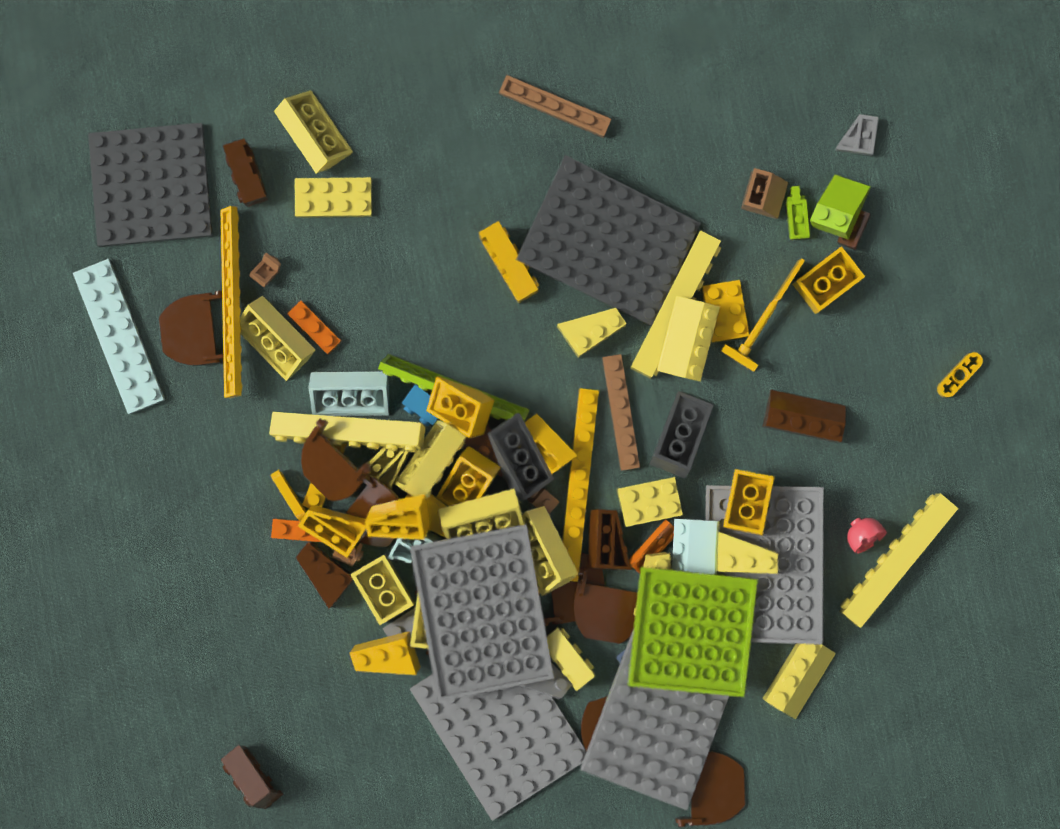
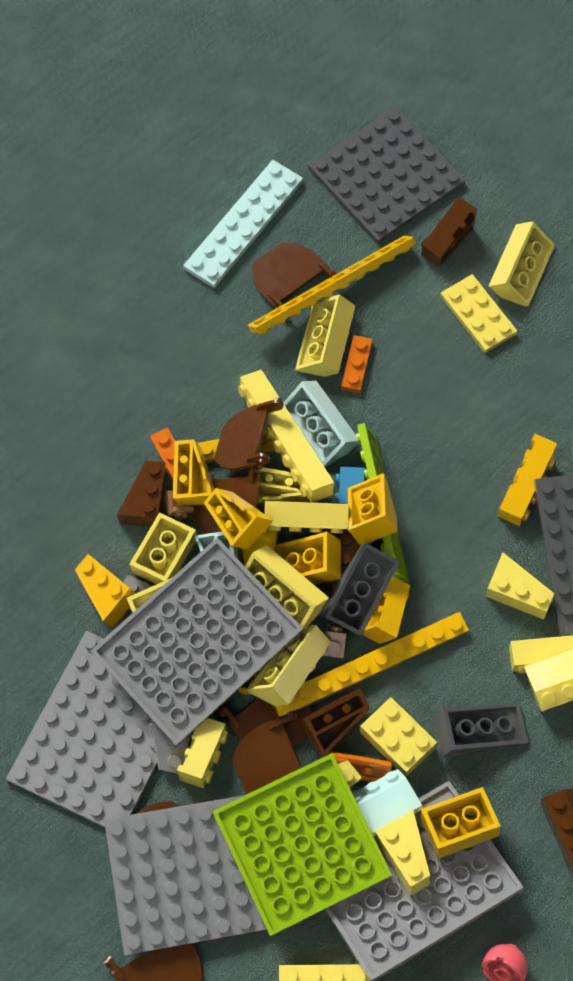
camera: 60 degrees right, 20 degrees down
(266, 270) = (378, 297): medium nougat bracket -> none
(288, 494) = (199, 422): yellow beam -> none
(620, 412) = (462, 663): medium nougat plate -> none

